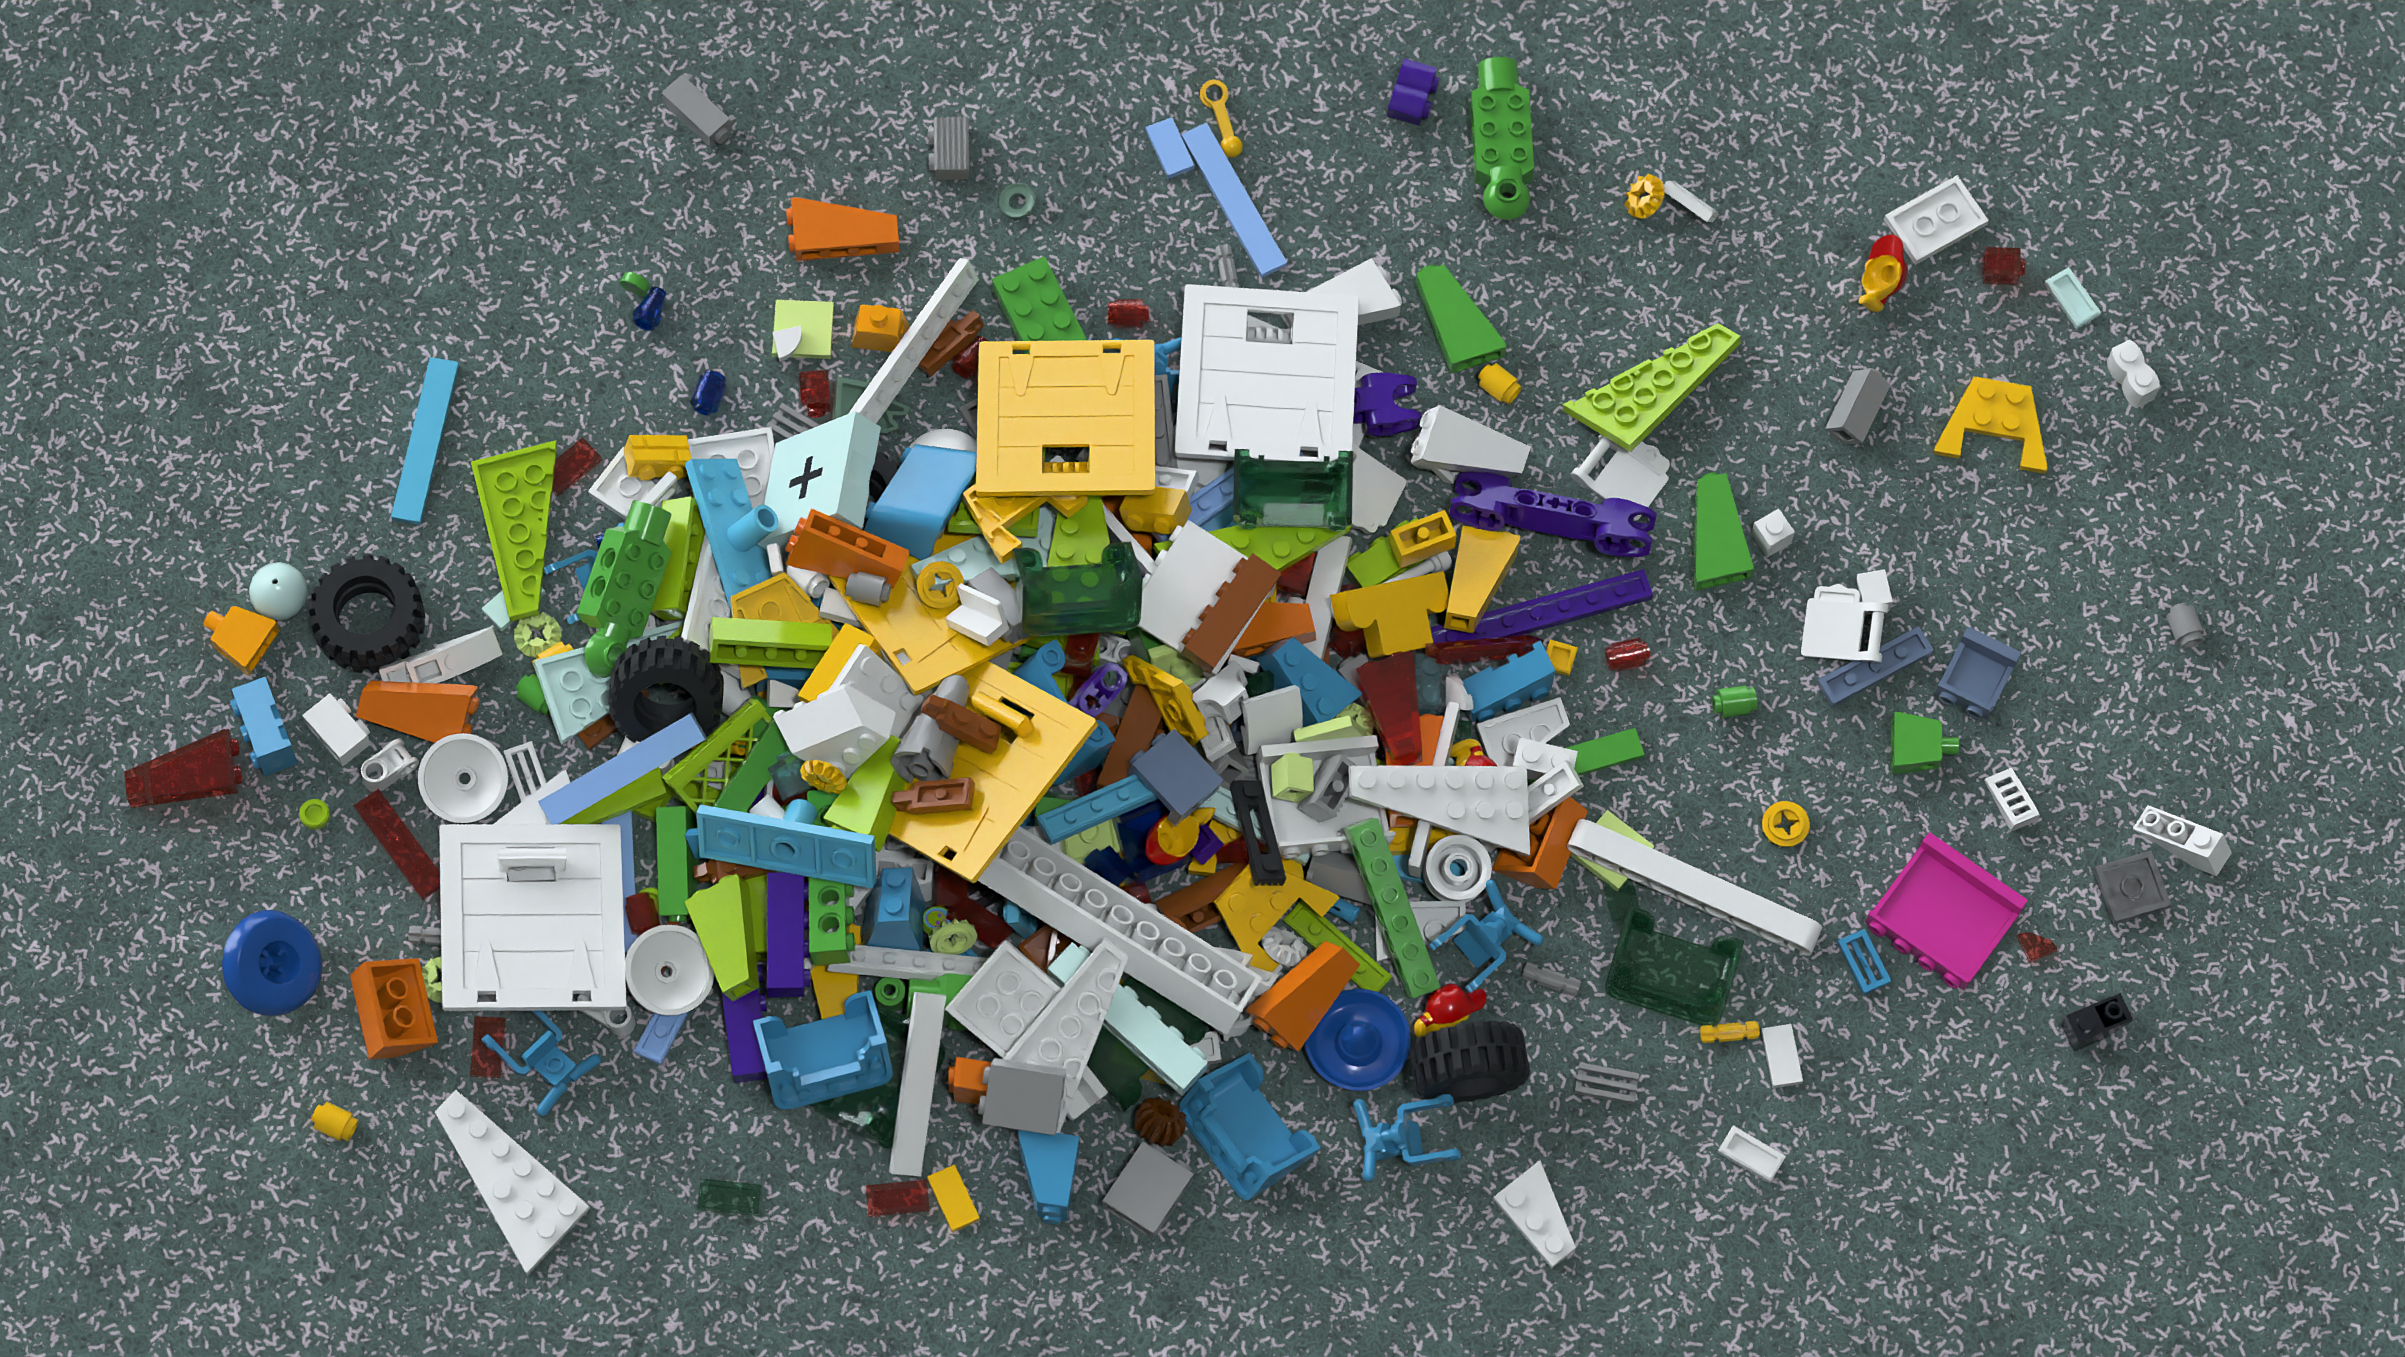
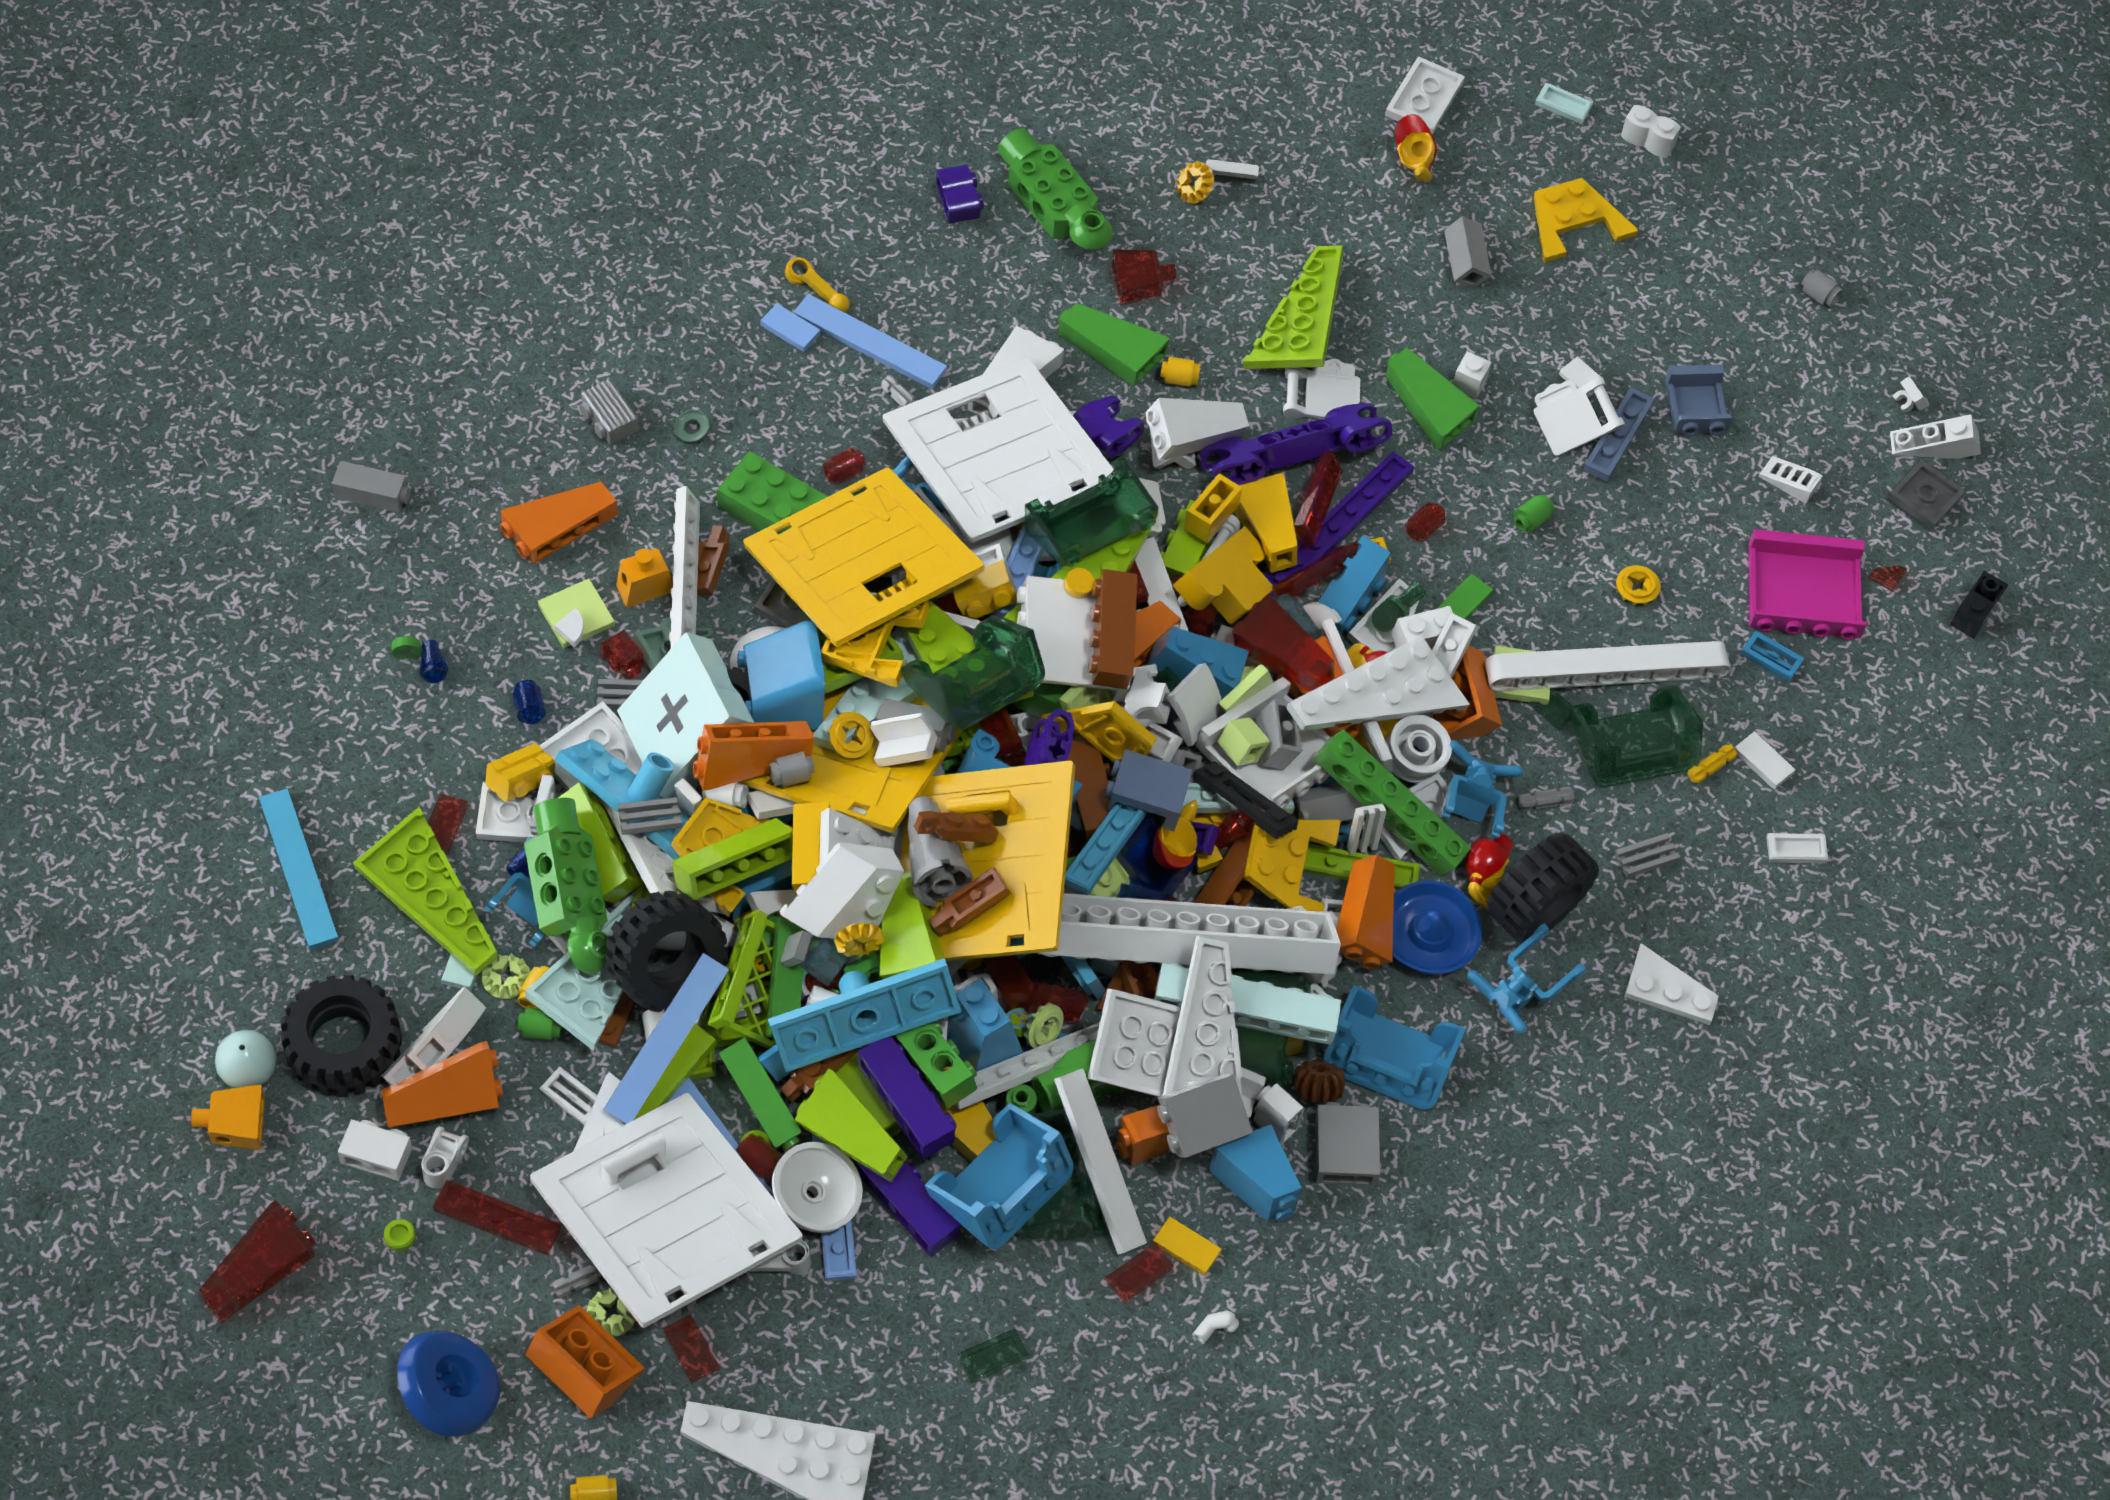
camera: 35 degrees left, 10 degrees down
(263, 727) = (306, 1182): dark azure wedge -> none
(441, 774) = (524, 1105): white dish -> none
(548, 1062) = (755, 1325): dark azure piece -> none
(732, 551) = (649, 811): none -> light grey tile
(770, 753) = (795, 949): none -> light grey tile
(933, 1277) = (1215, 1321): none -> white arm
(967, 360) = (736, 565): clear red cone -> none
(1102, 1129) = (1279, 1110): none -> white brick
(1230, 551) = (1079, 583): none -> yellow tile
(1288, 954) = (1320, 887): white gear -> none
(1353, 927) = (1371, 828): none -> white tile
(1527, 265) = (1139, 274): none -> clear red torso
(1531, 725) = (1395, 607): none -> clear green arm
(1537, 578) = (1318, 498): none -> clear red plate
(1918, 743) = (1692, 472): bright green torso -> none
(2002, 265) = (1497, 103): clear red brick -> none
(2195, 781) = (1912, 394): none -> white tile

